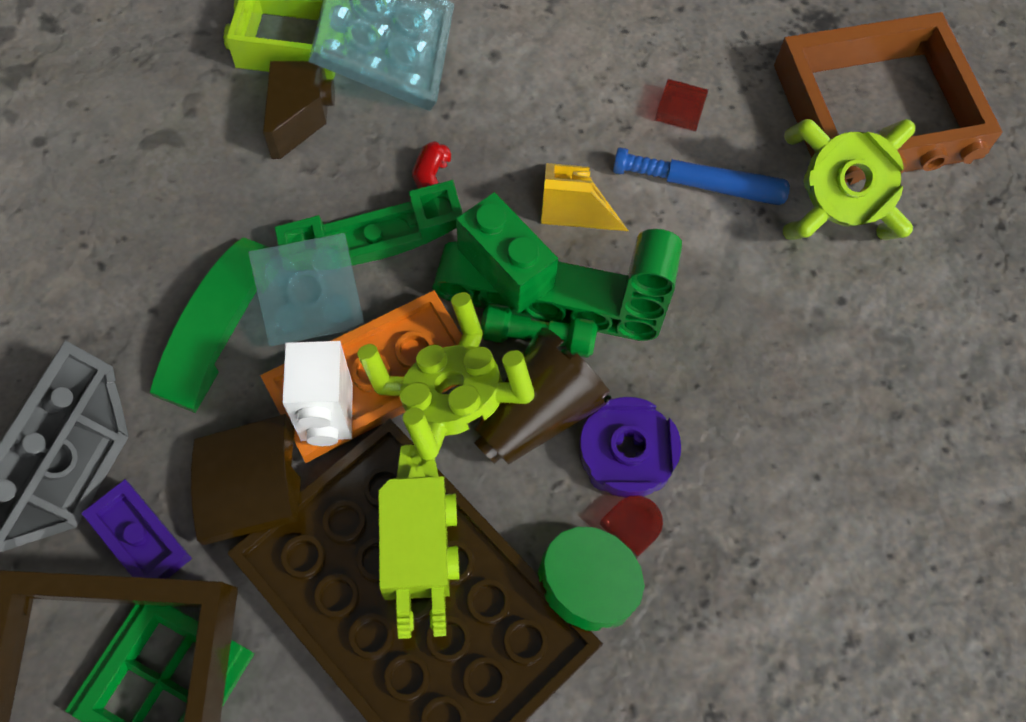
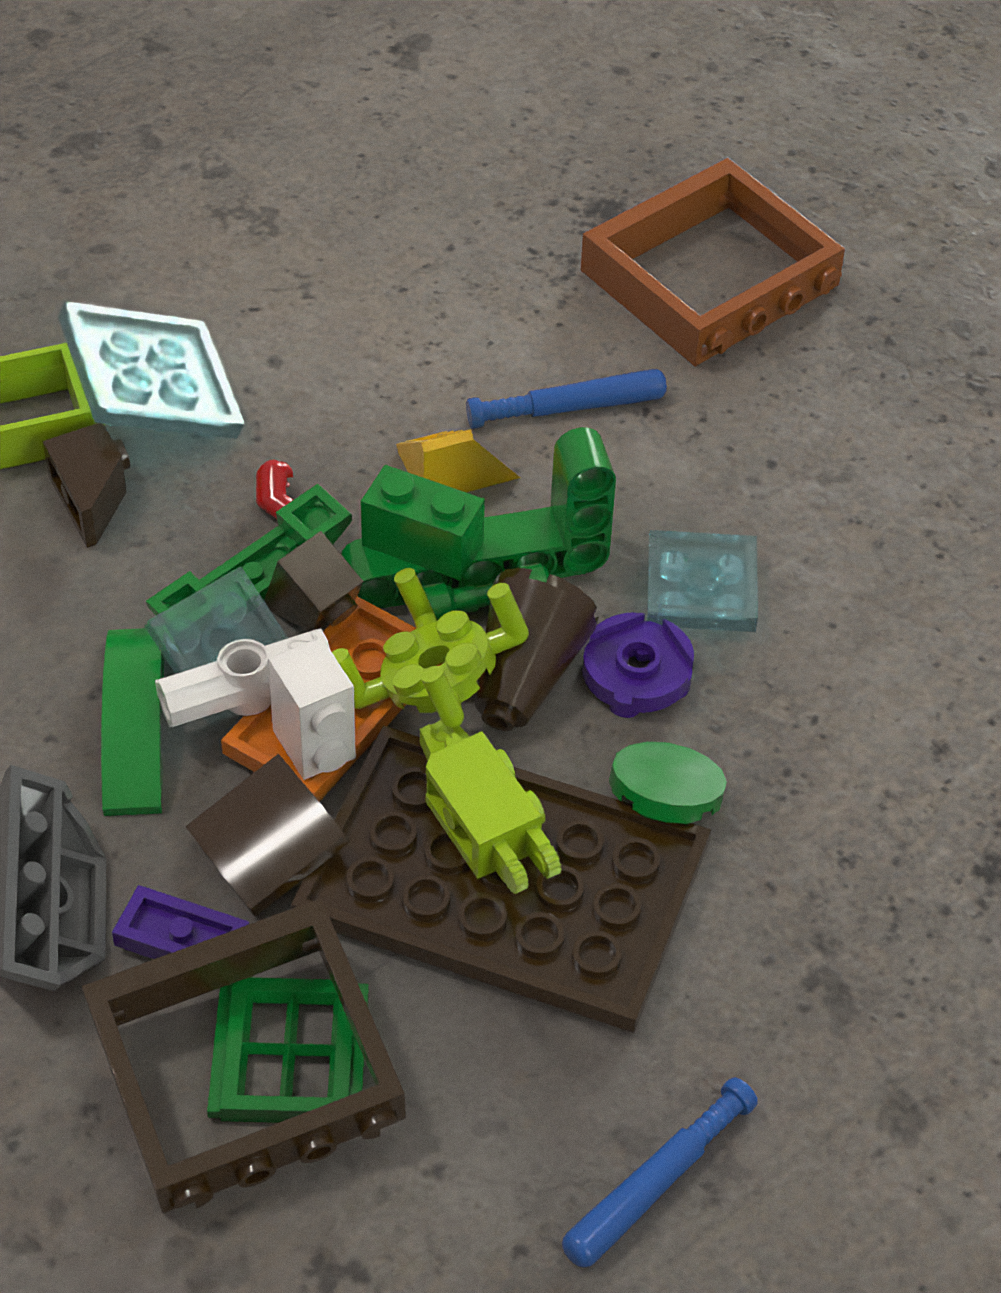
camera: 25 degrees left, 15 degrees down
(269, 329) = (233, 682): none -> white piece
(396, 272) = (313, 585): none -> dark brown slope
(634, 522) = (681, 724): clear red tile -> none
(681, 105) = (507, 338): clear red tile -> none
(723, 393) = (702, 580): none -> clear light blue plate
(826, 179) = (707, 356): lime plate -> none

